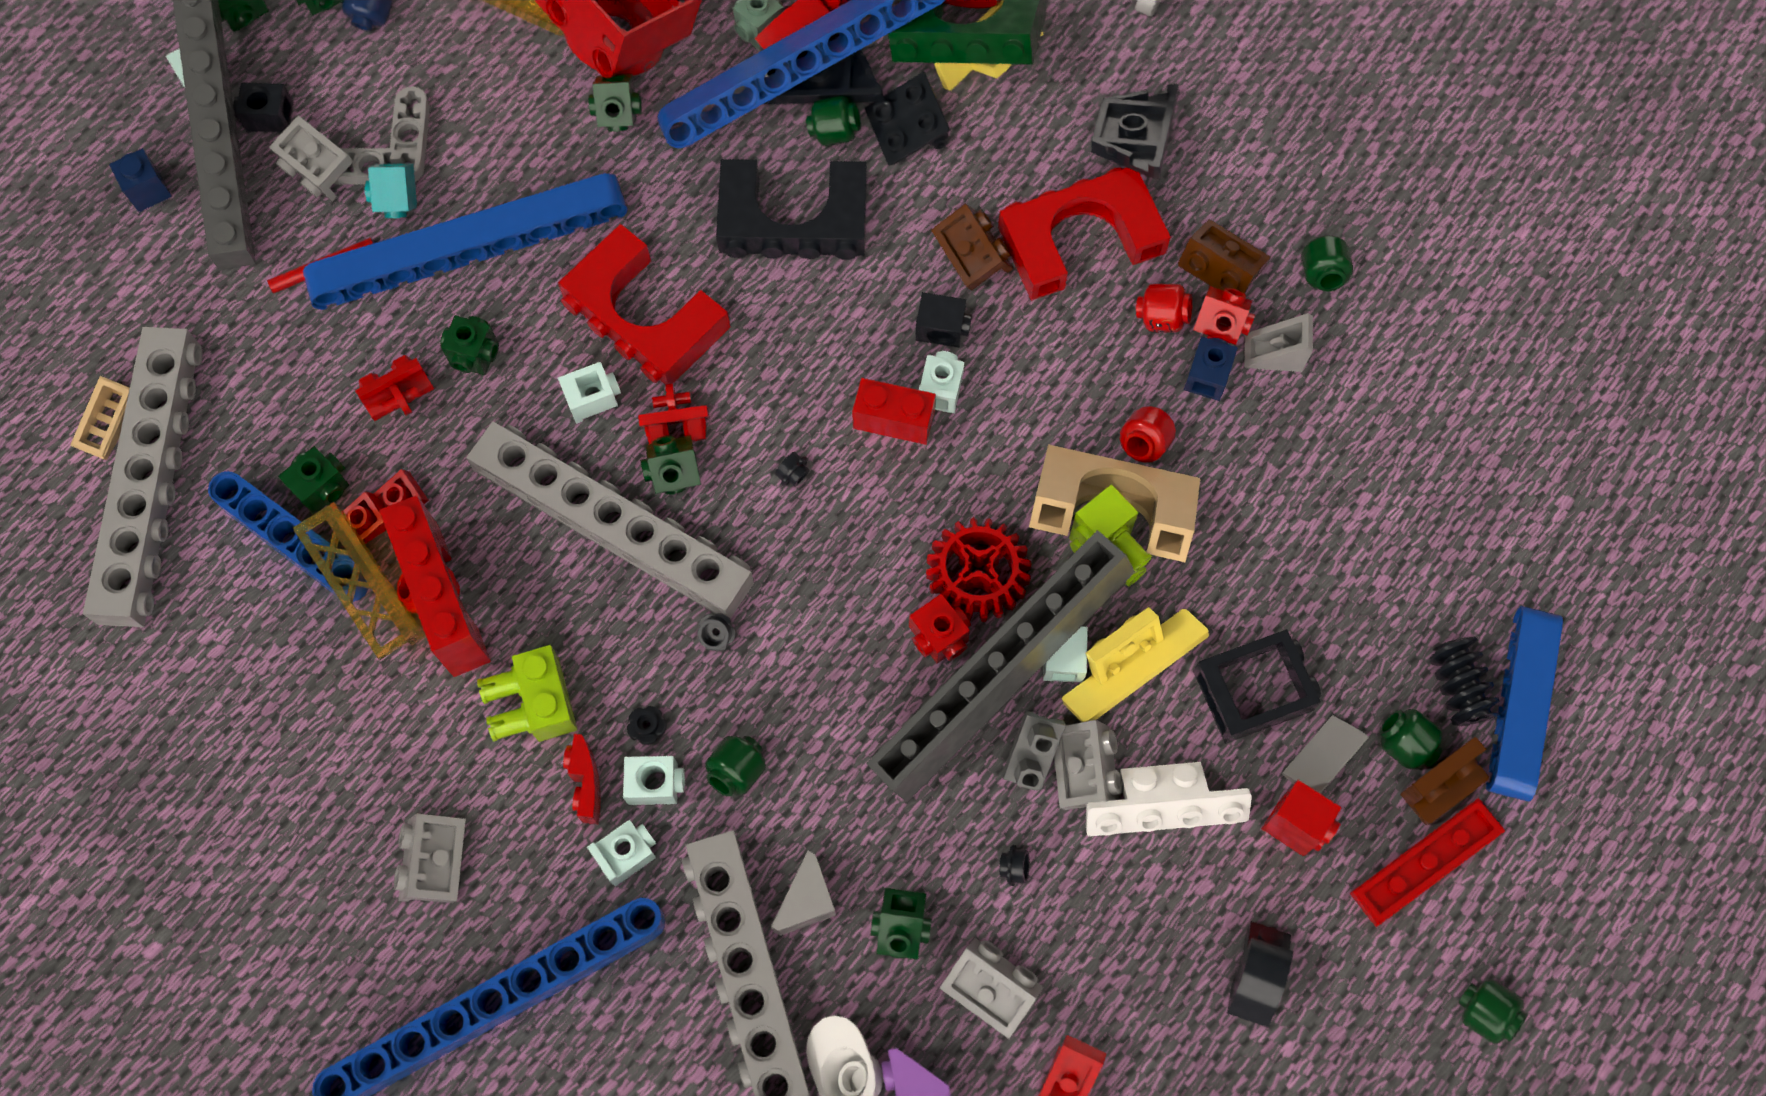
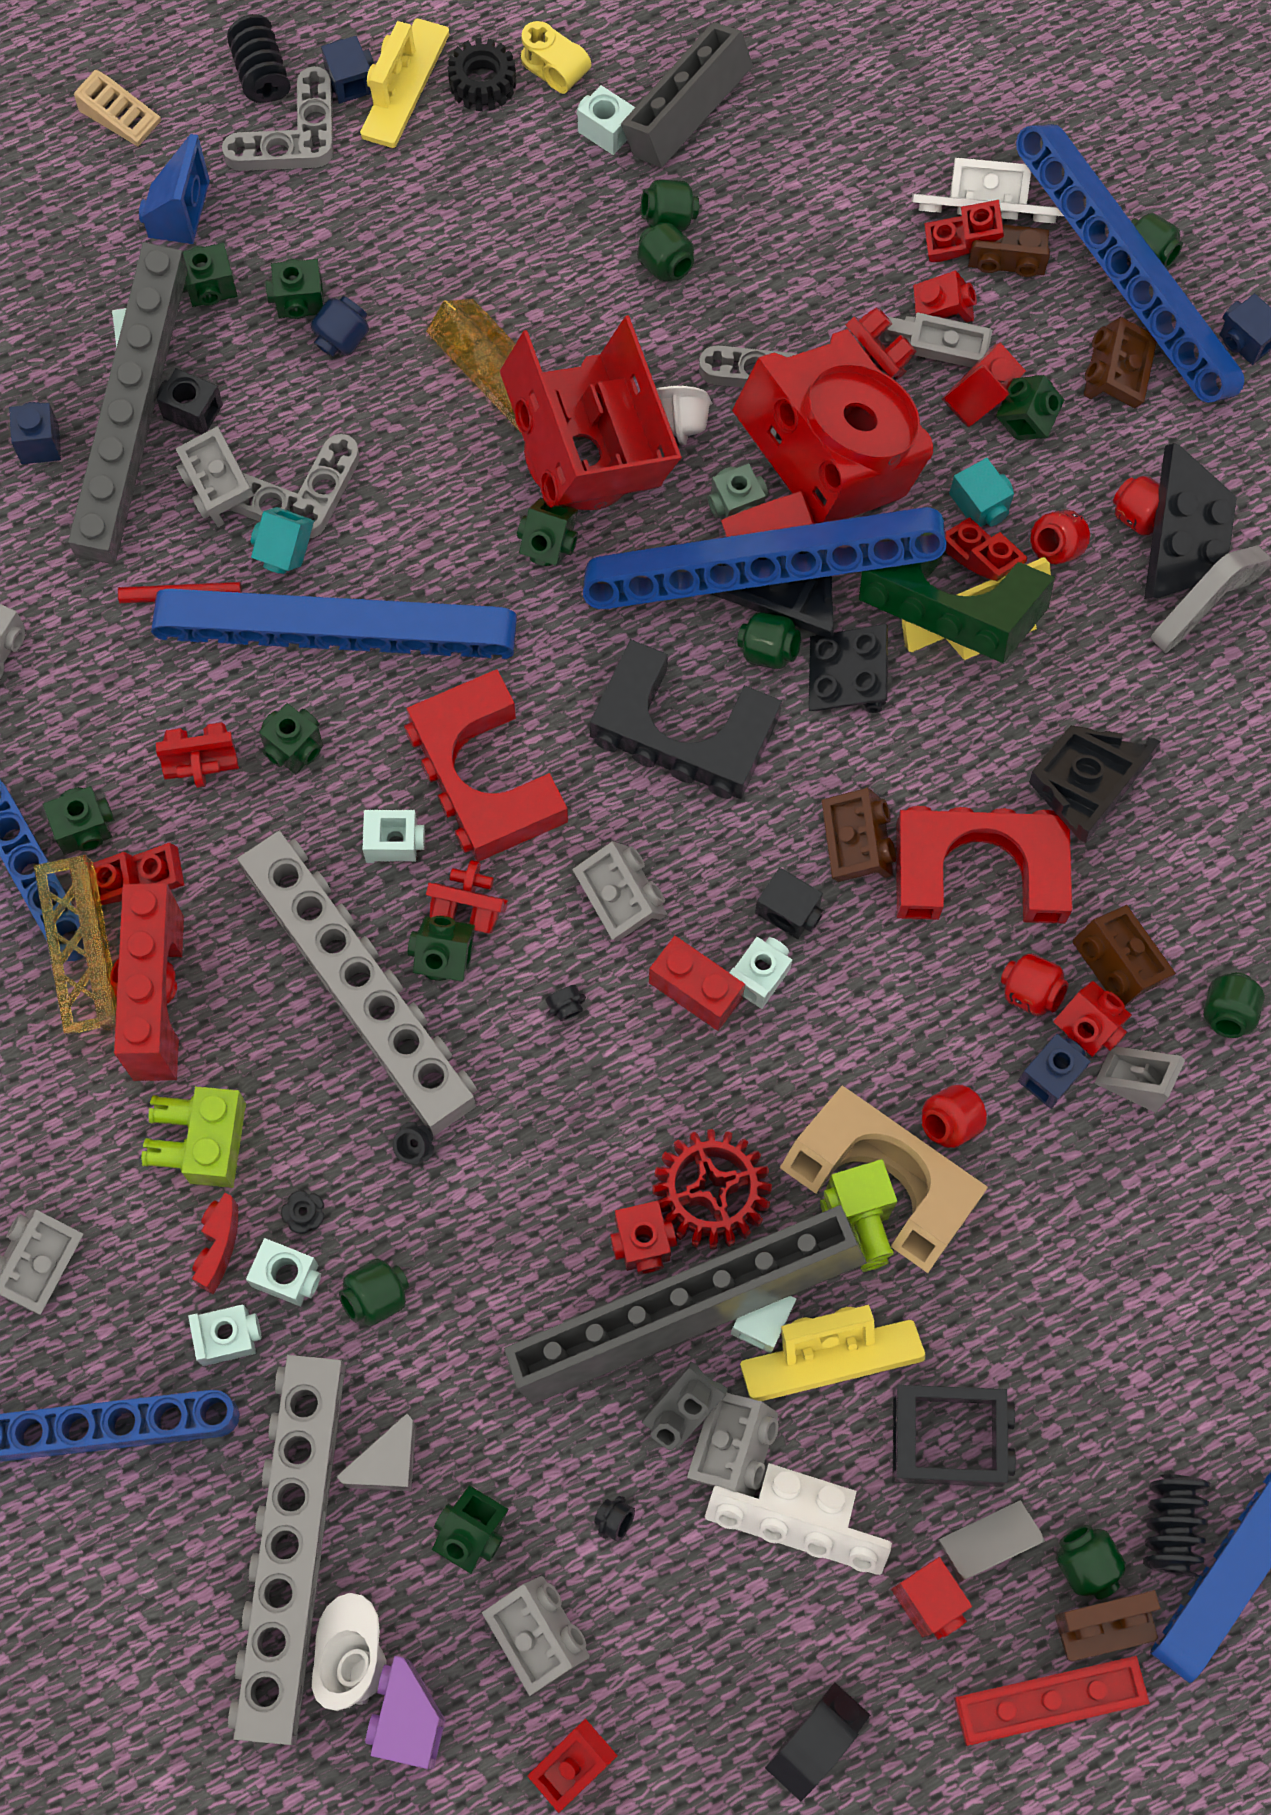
camera: 20 degrees right, 0 degrees up
(797, 362) = (620, 889): none -> light grey bracket

